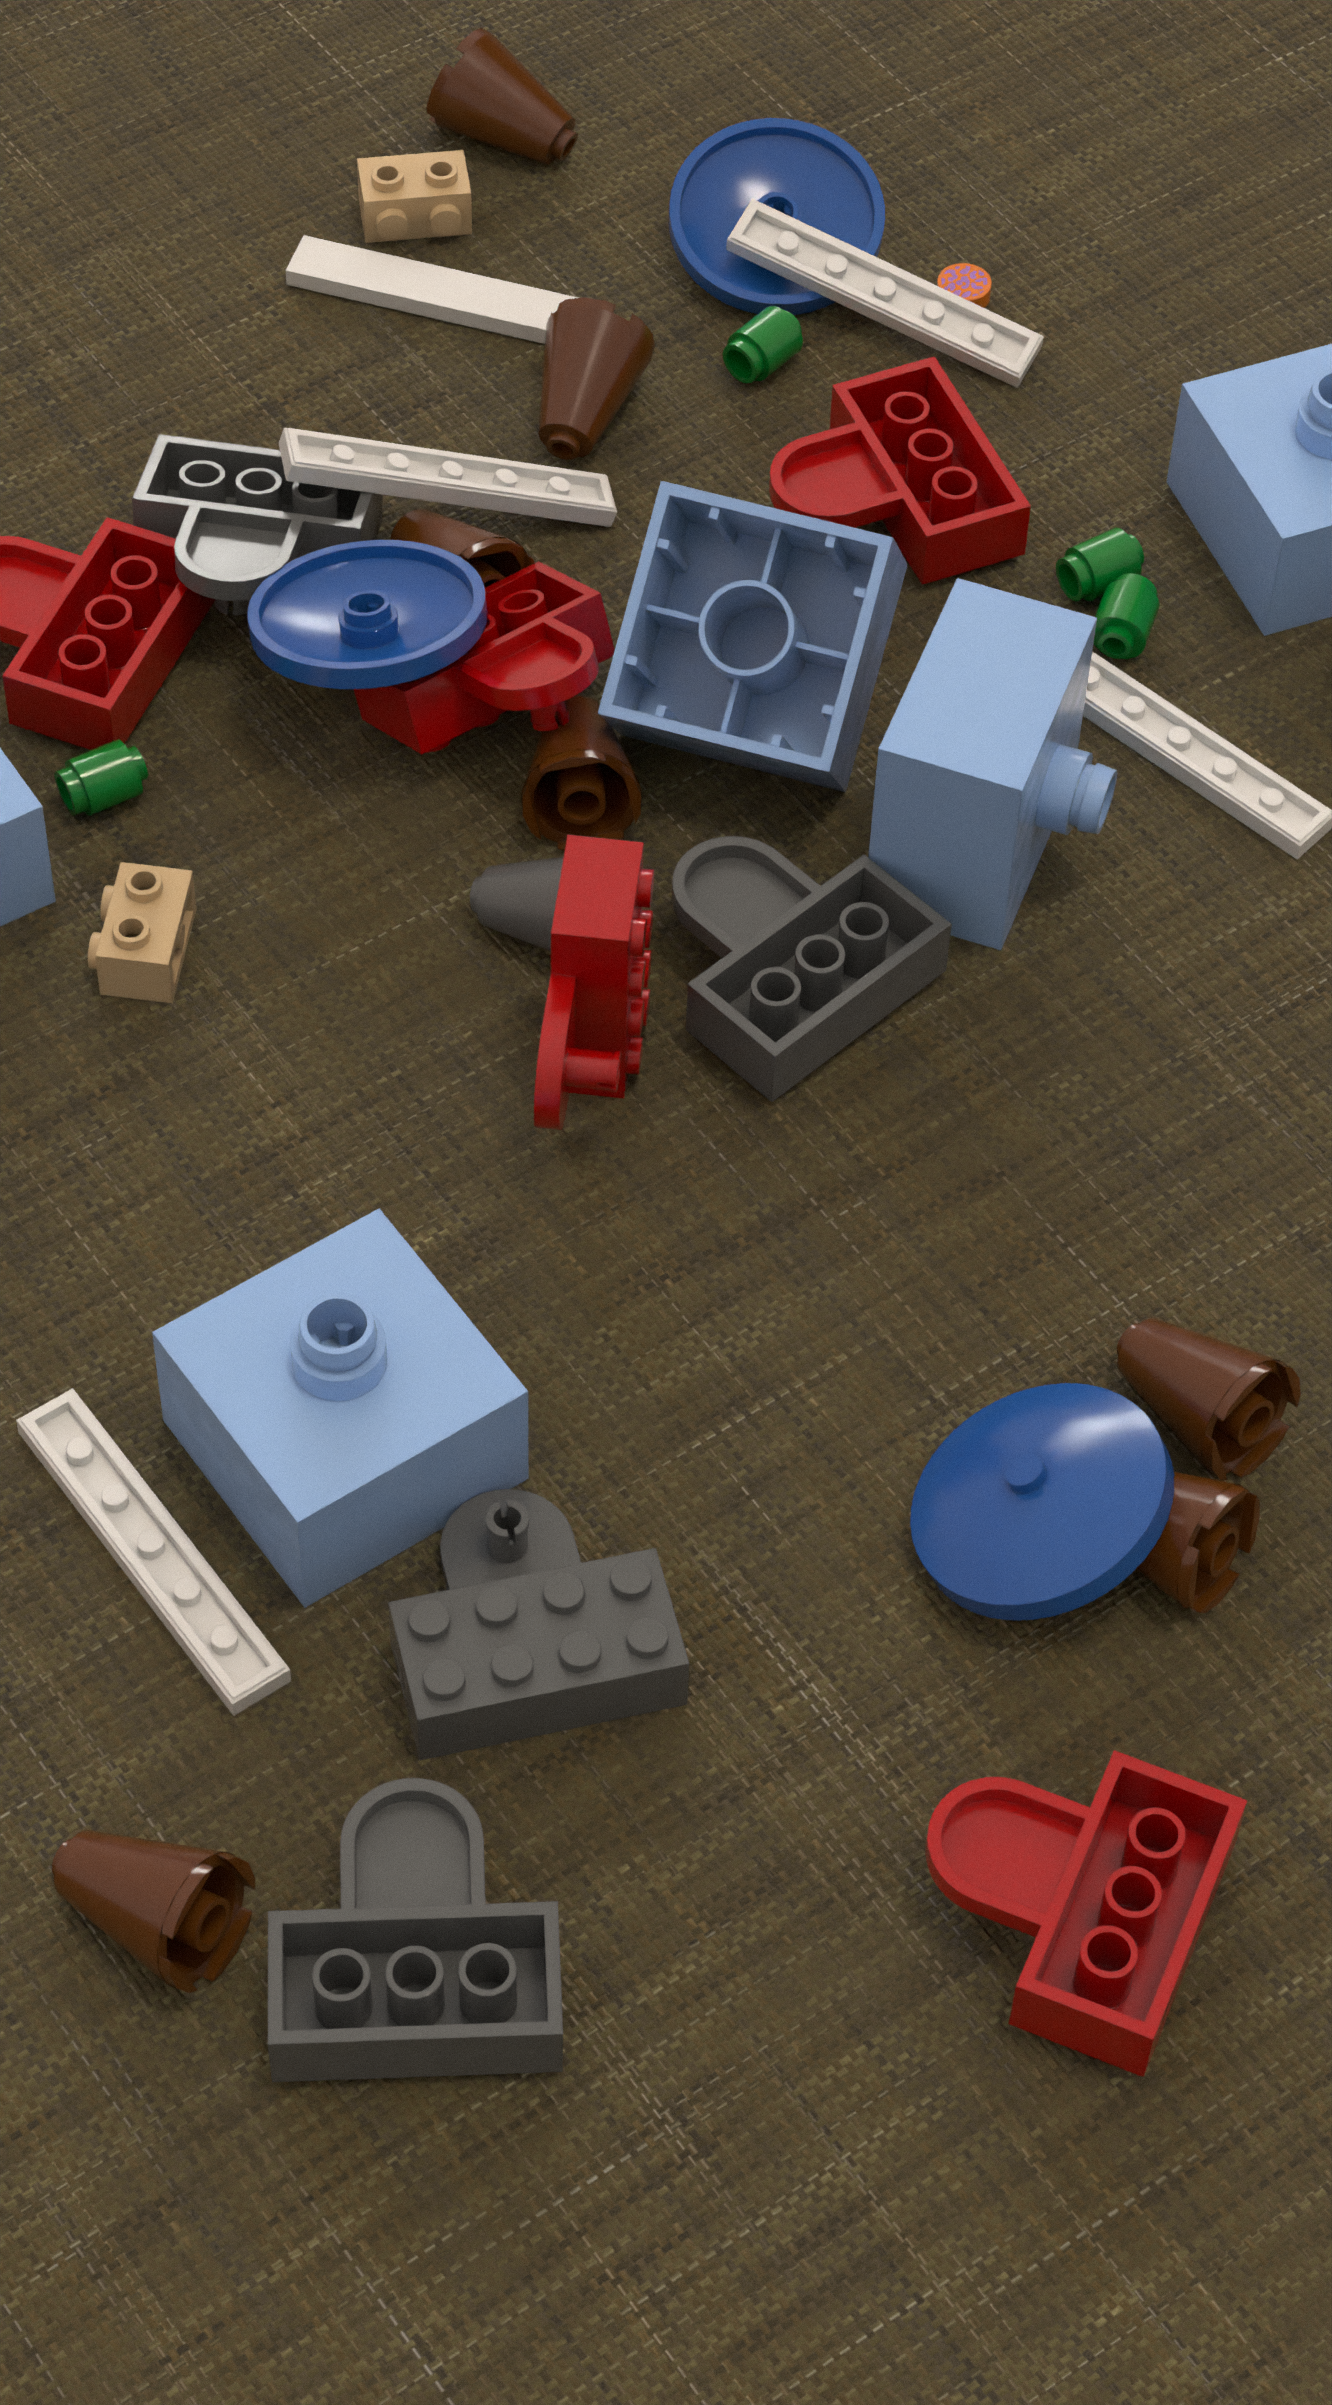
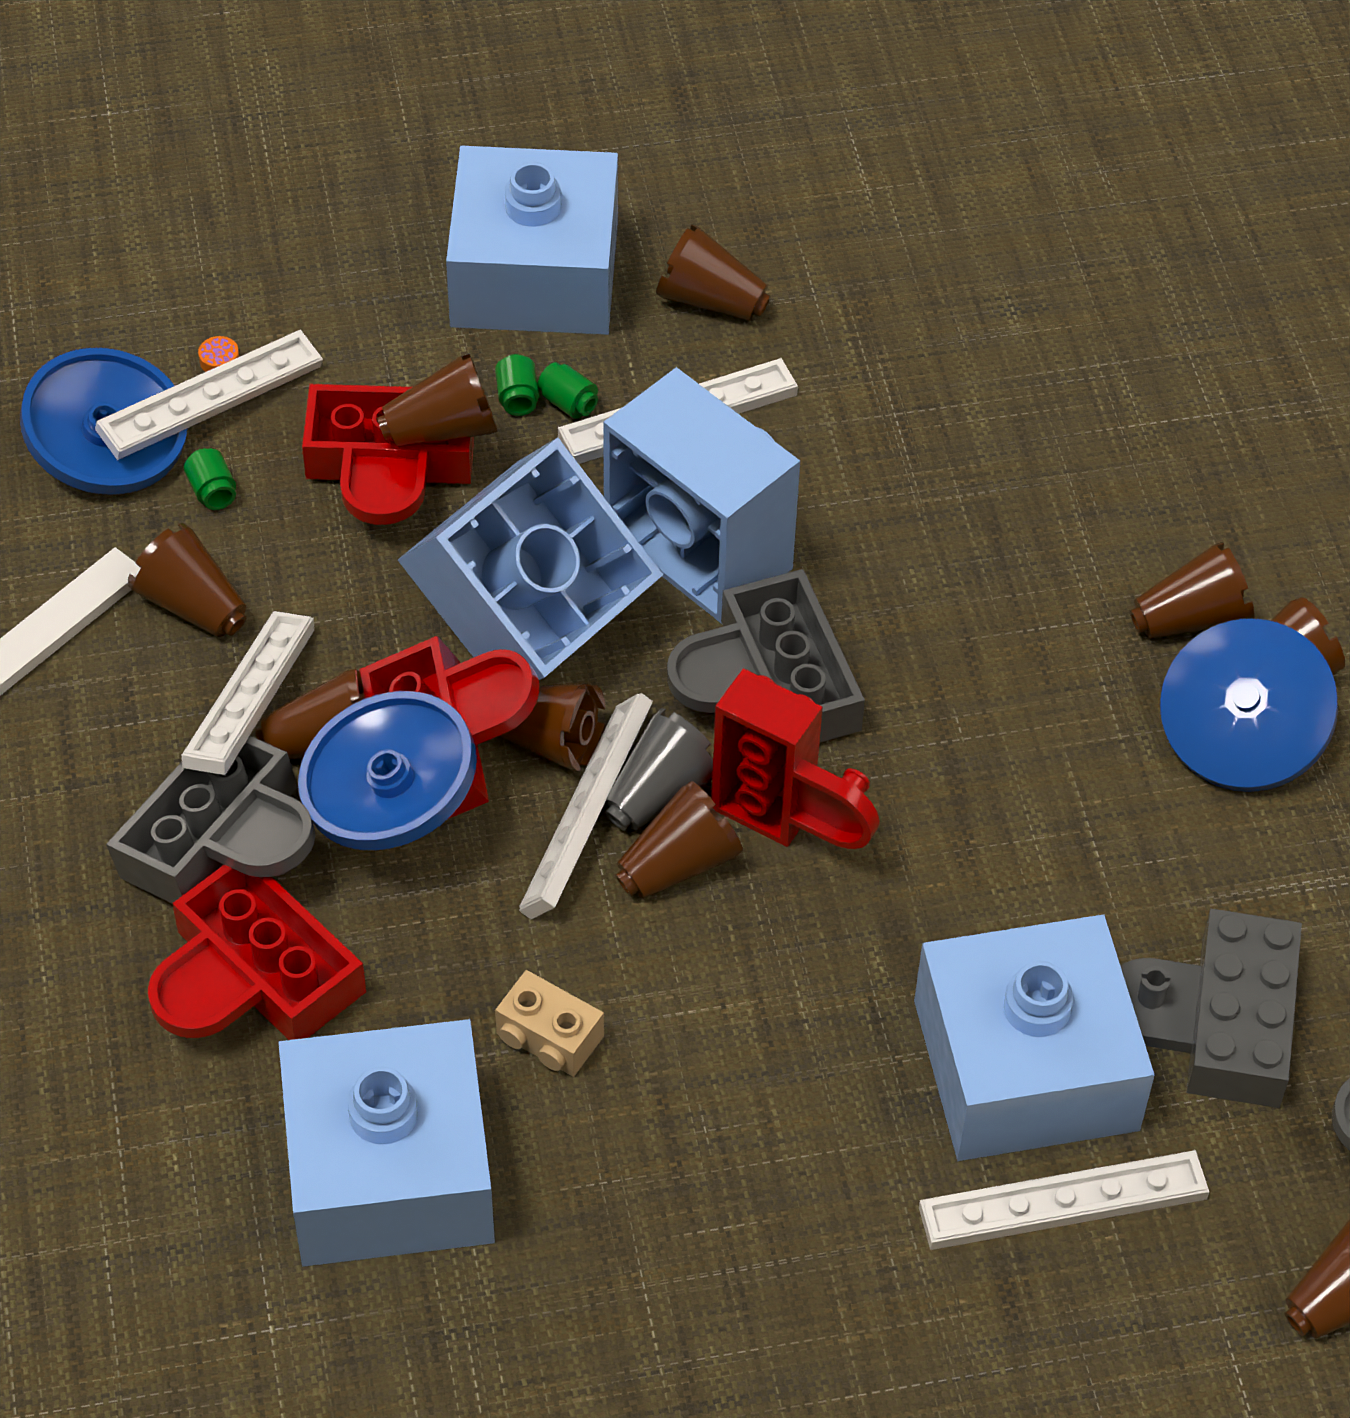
camera: 65 degrees left, 0 degrees up
(101, 778) = (391, 999): green brick -> none
(449, 856) = (585, 806): none -> white tile
(470, 961) = (678, 844): none -> reddish brown cone
(959, 472) = (440, 408): none -> reddish brown cone

